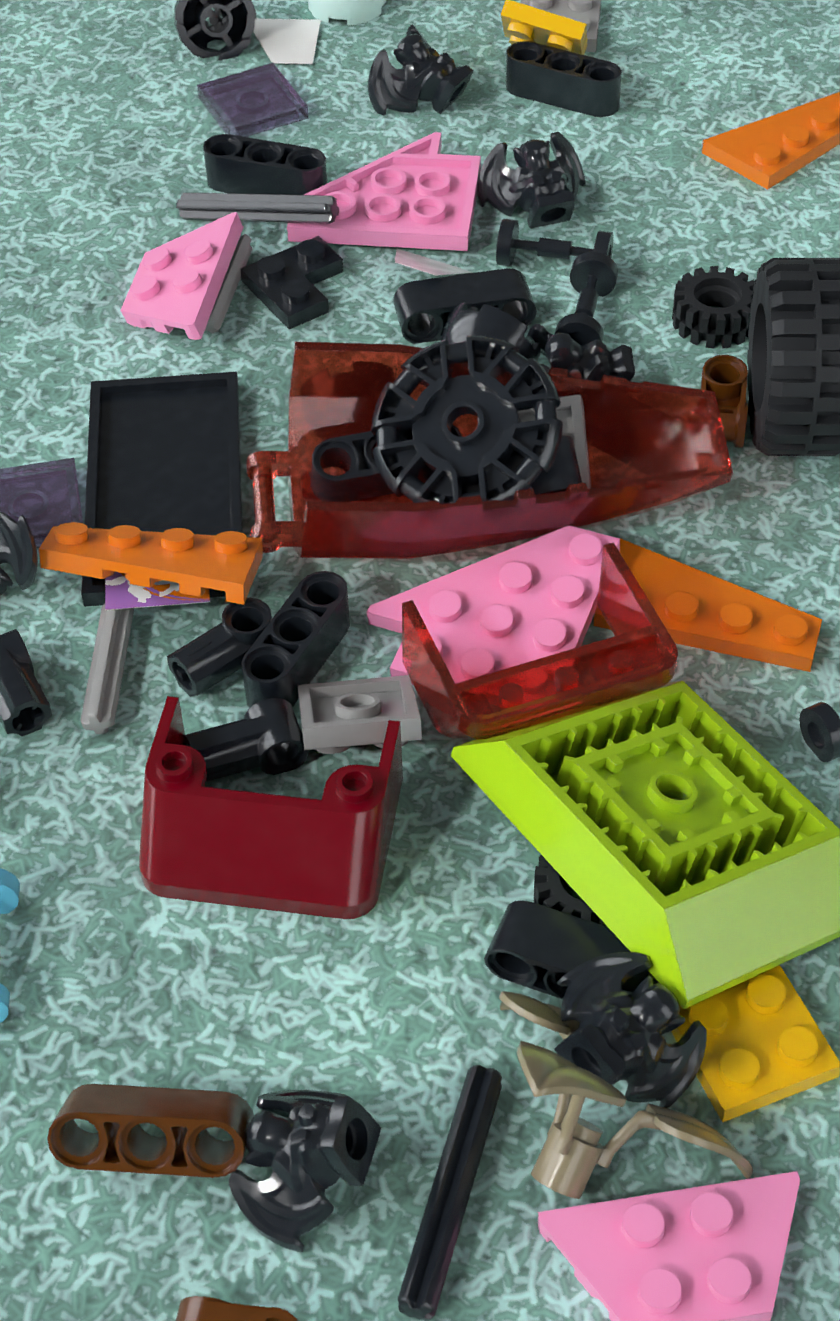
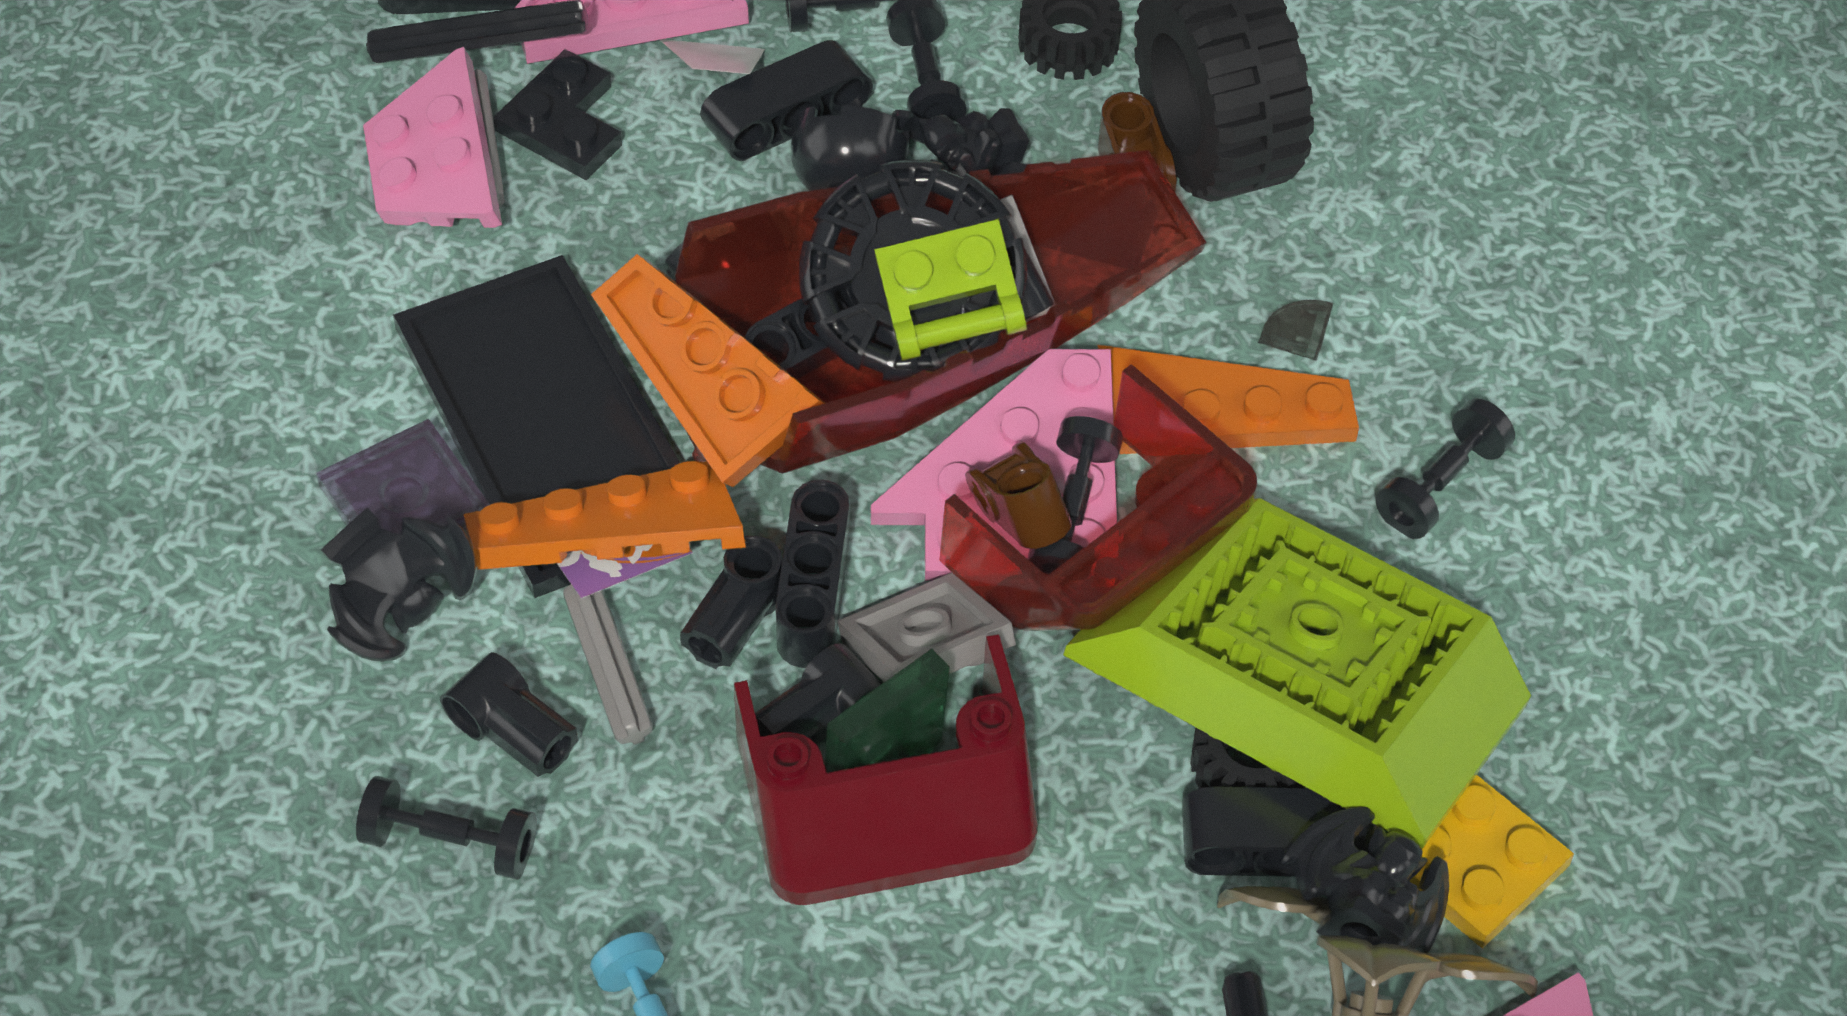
camera: 25 degrees left, 5 degrees up
(272, 462) = (709, 375): none -> orange wing
(283, 759) = (893, 720): none -> clear green plate
(480, 626) = (1021, 498): none -> reddish brown piece
(483, 428) = (945, 270): none -> lime plate
(559, 599) = (1089, 442): none -> black wheel
(799, 569) = (1298, 327): none -> clear smoke tile

